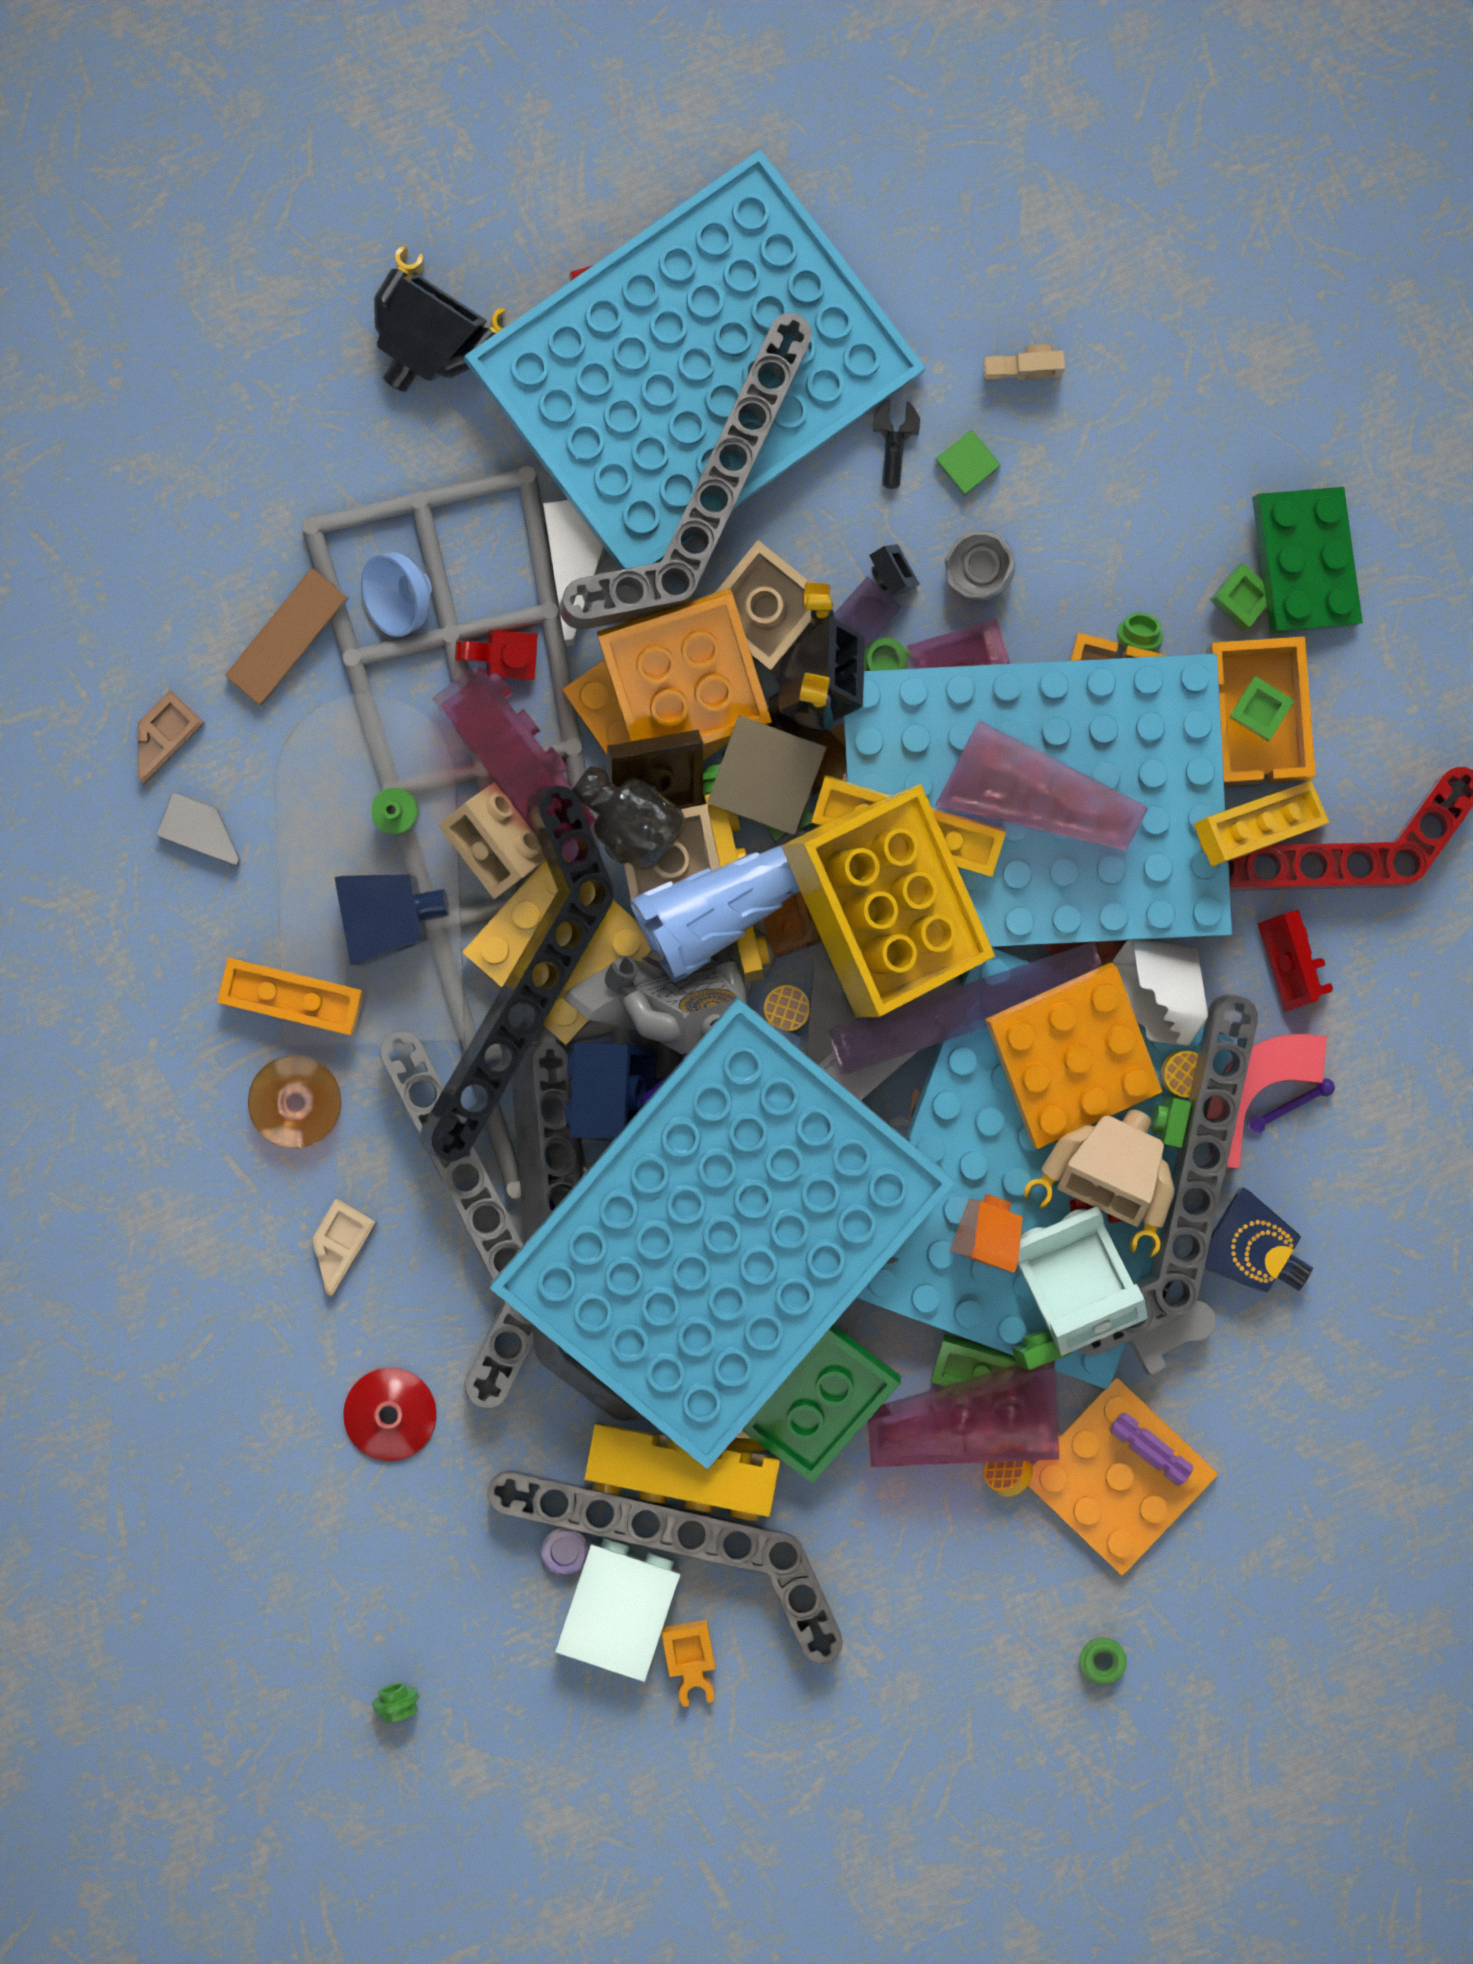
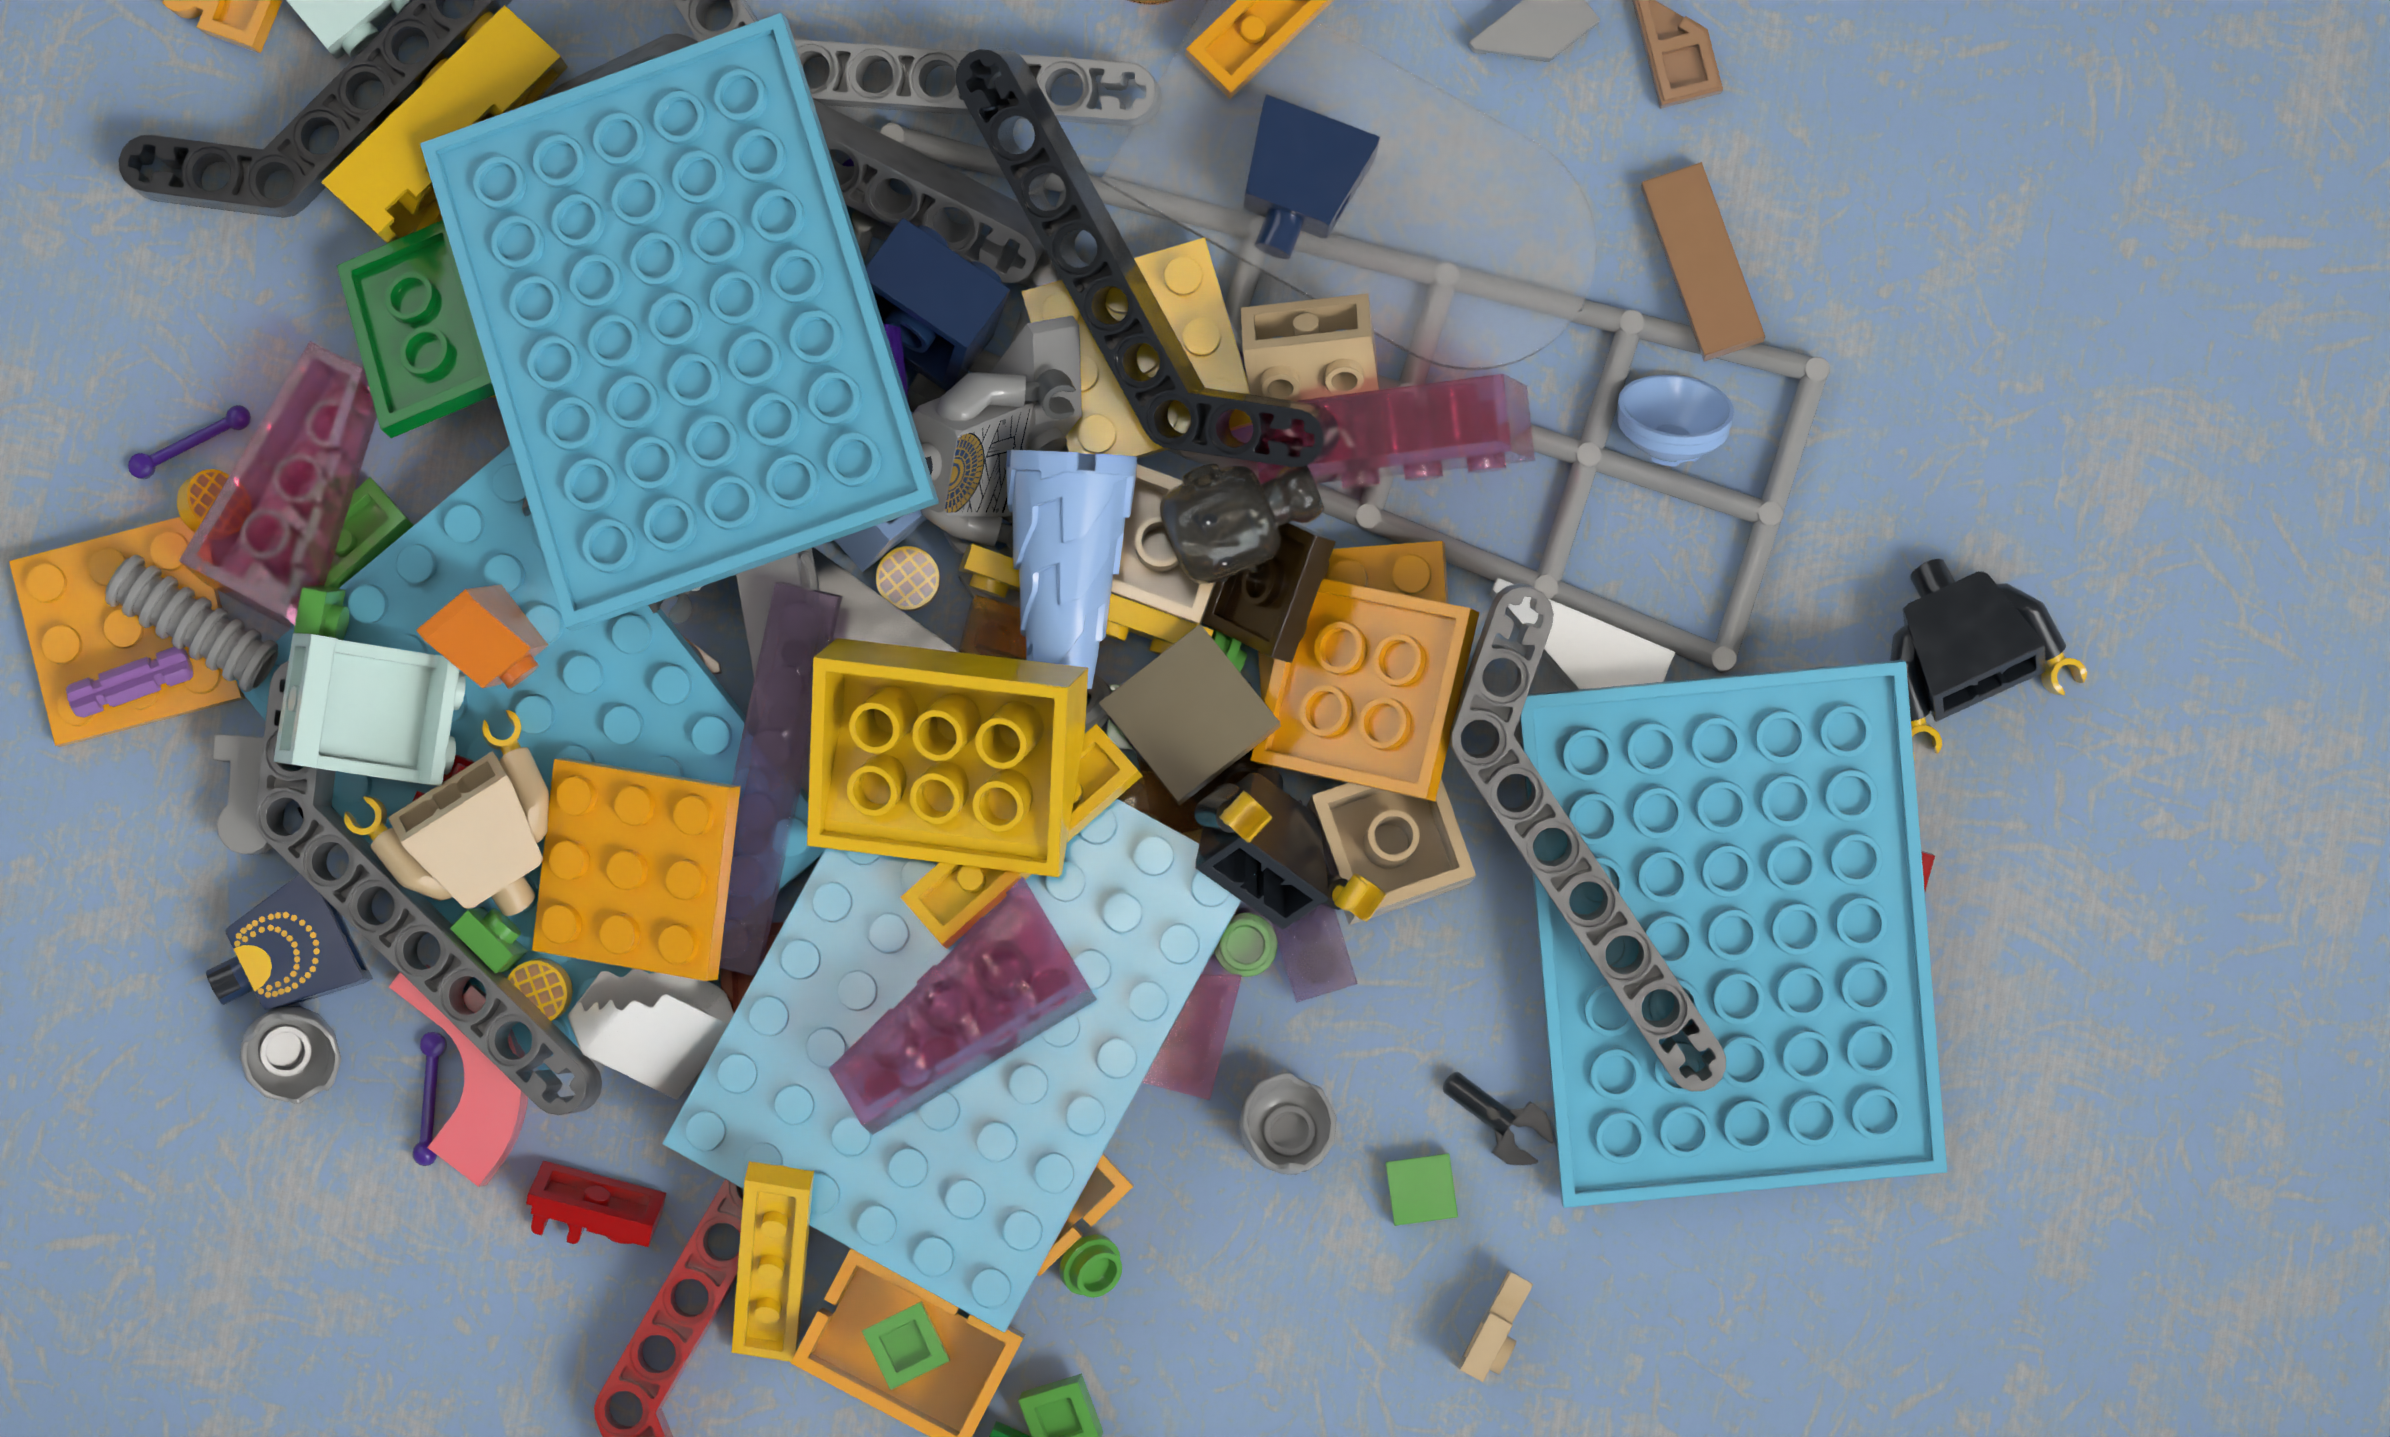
camera: 125 degrees right, 0 degrees up
(405, 815) = (1412, 272): bright green tile -> none
(506, 653) = (1524, 503): red plate -> none
(893, 570) = (1345, 1019): black plate -> none
(1010, 1531) = (143, 465): none -> dark purple hinge
(1091, 1431) = (191, 623): none -> light grey piece
(1317, 1205) = (290, 1054): none -> light grey hair

